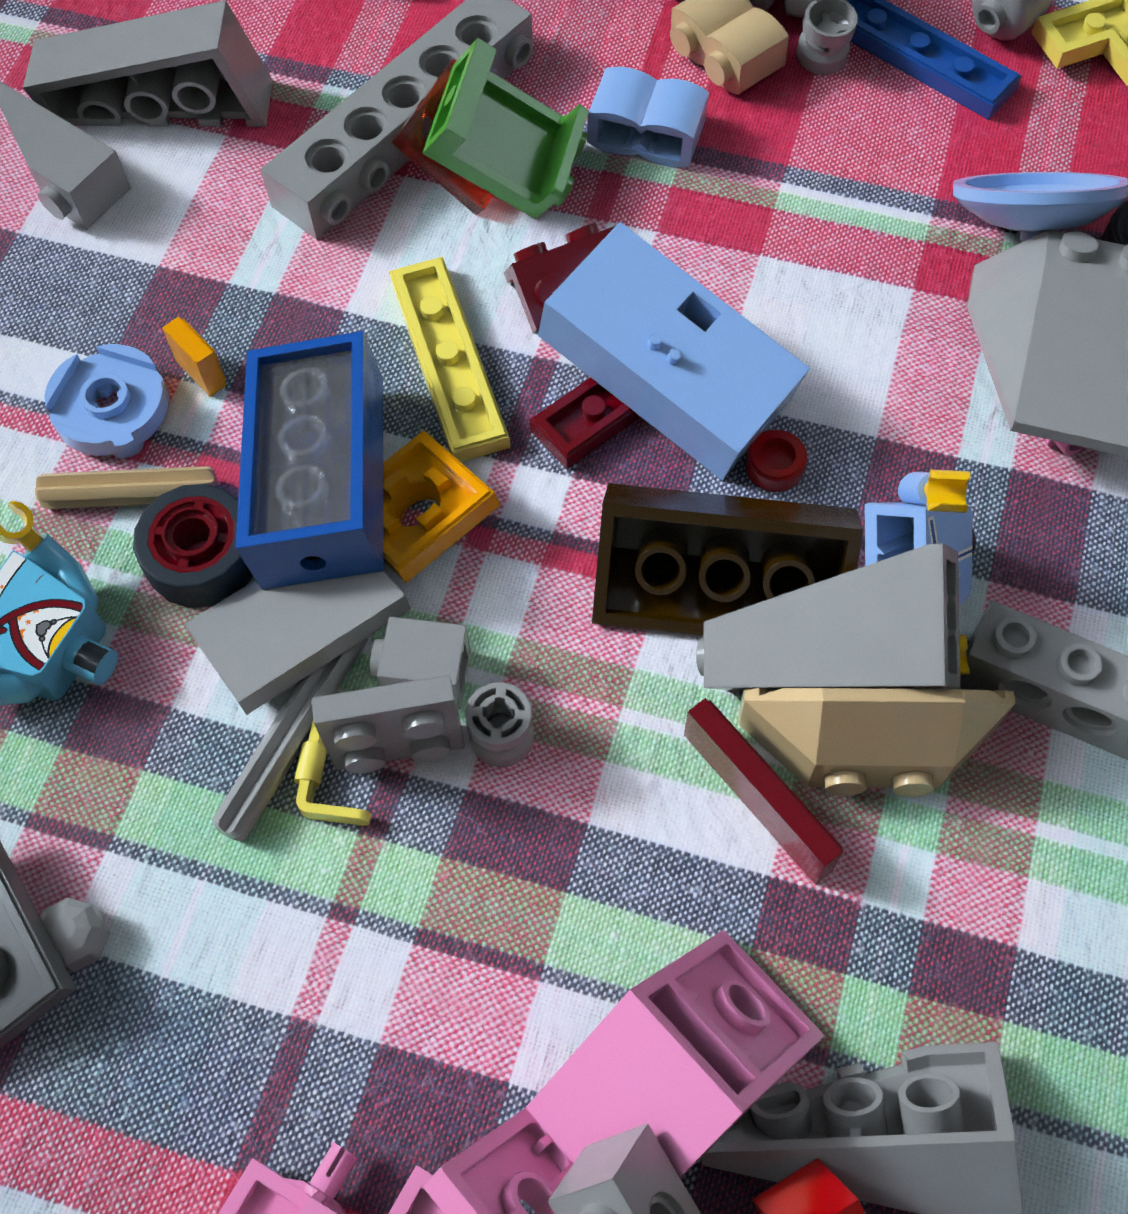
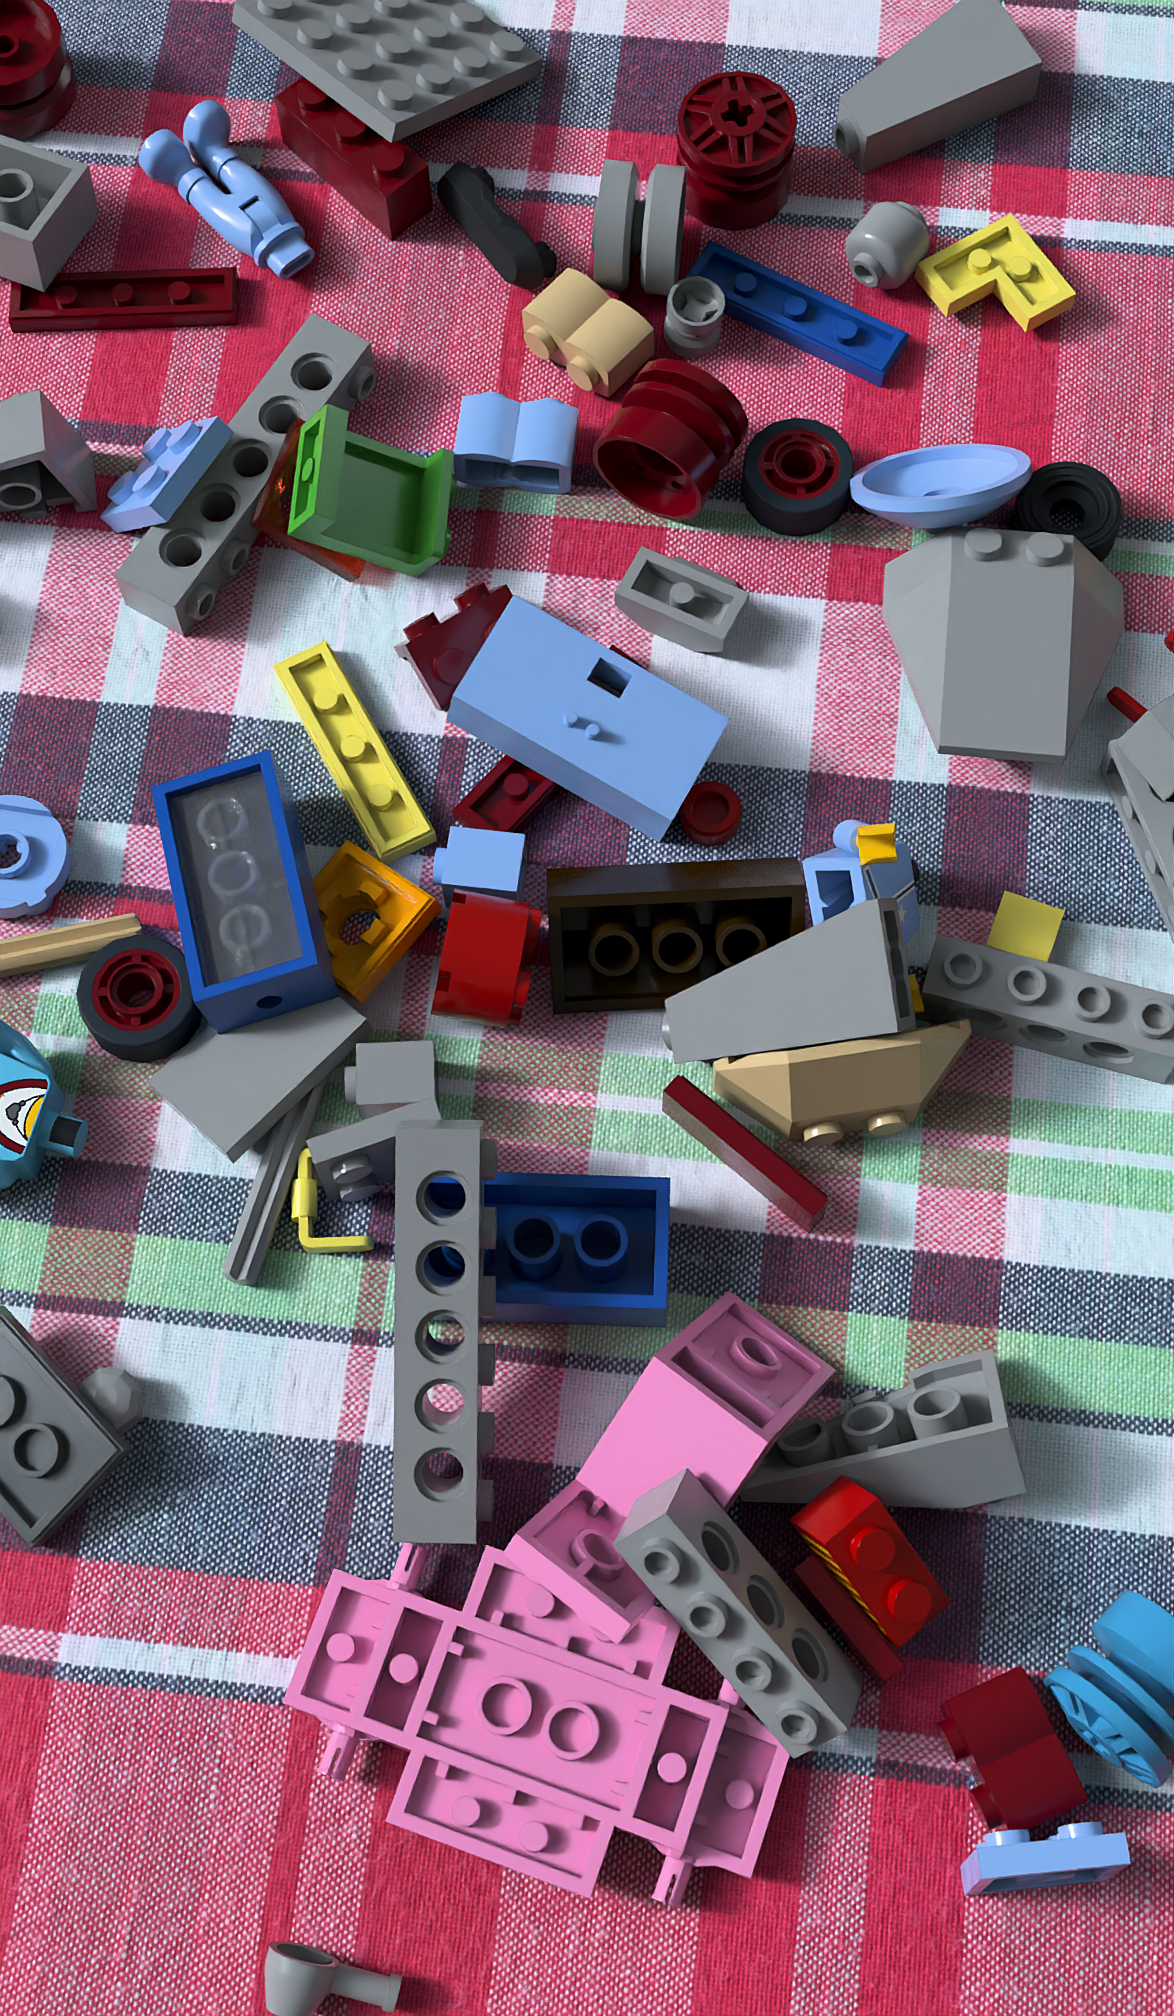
camera: 10 degrees left, 5 degrees up
(195, 355) = (89, 794): light orange tile -> none
(326, 93) = (167, 474): none -> light blue plate
(361, 1104) = (424, 1504): none -> light grey brick
(501, 739) = (492, 1108): light grey wheel -> none
(527, 850) = (570, 1247): none -> blue brick
(532, 556) = (483, 958): none -> red brick
(546, 477) = (481, 863): none -> light blue brick
(776, 268) = (681, 601): none -> light grey slope
(790, 123) = (670, 439): none -> dark red wheel
(902, 178) = (800, 449): none -> wheel
(1078, 609) = (1025, 927): none -> light yellow tile

